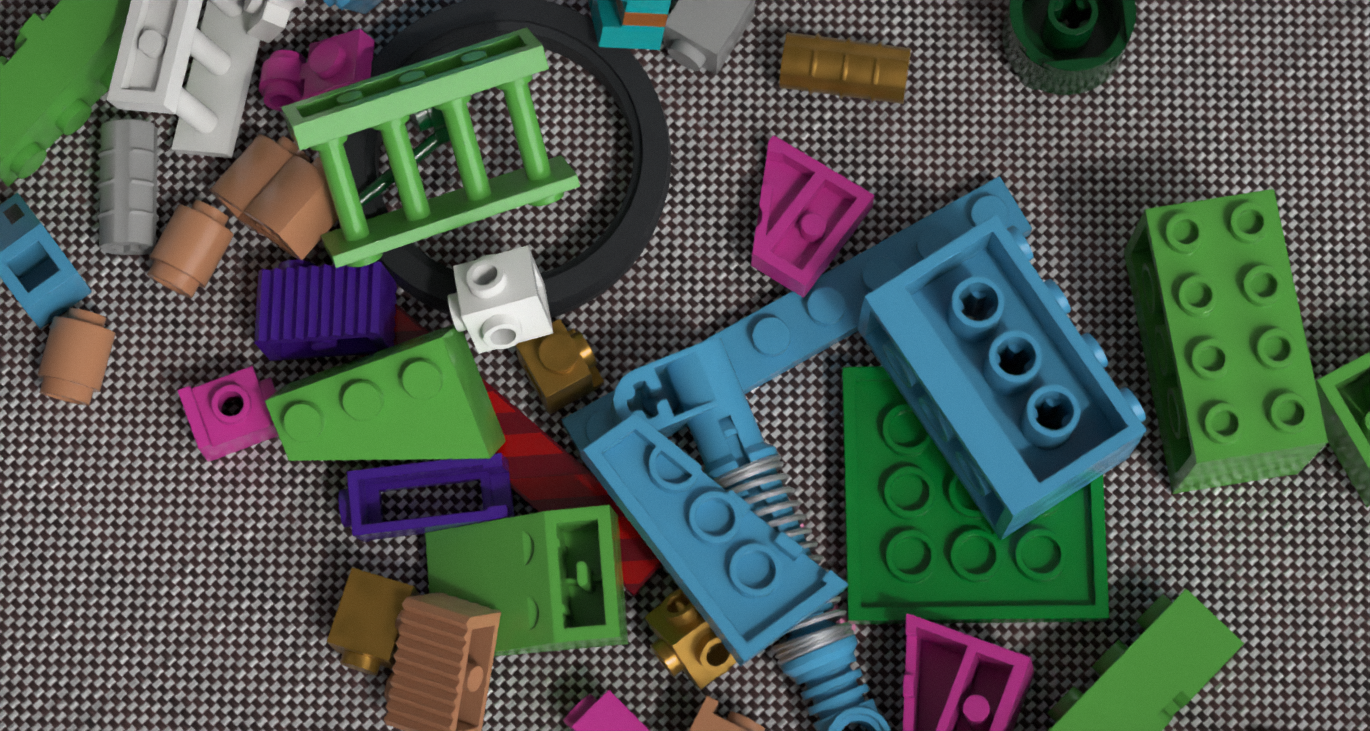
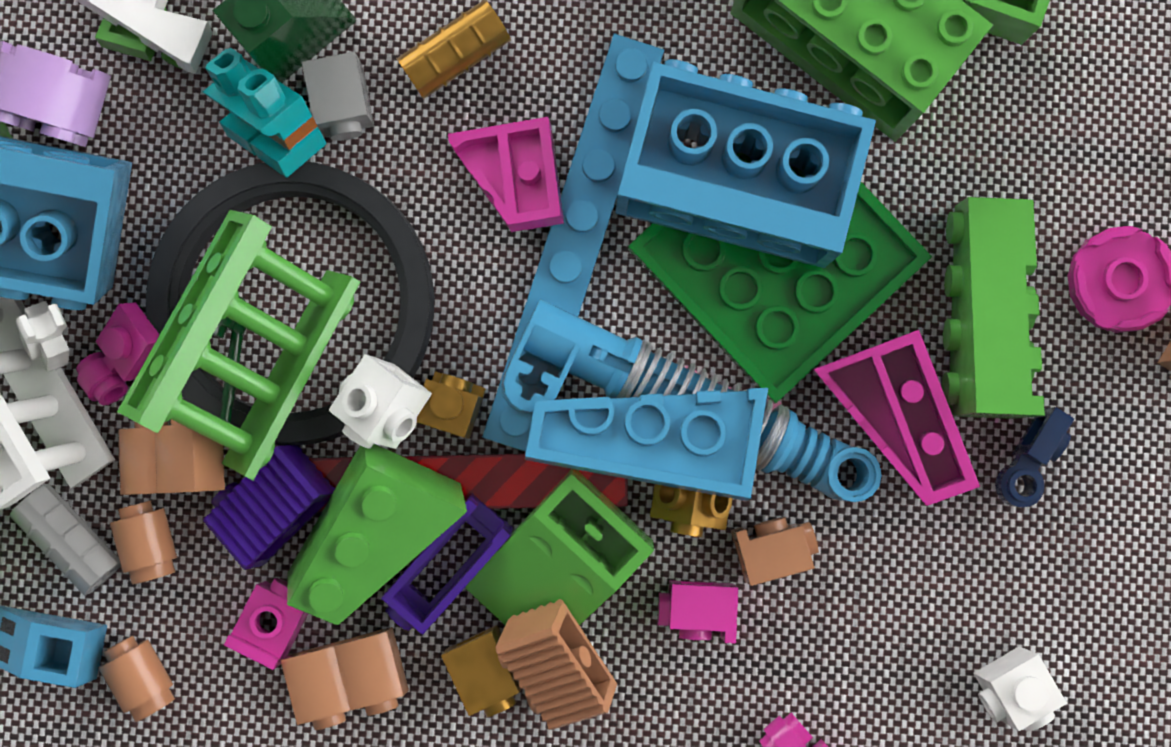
camera: 45 degrees left, 10 degrees up
(251, 517) = (345, 678): none -> nougat brick

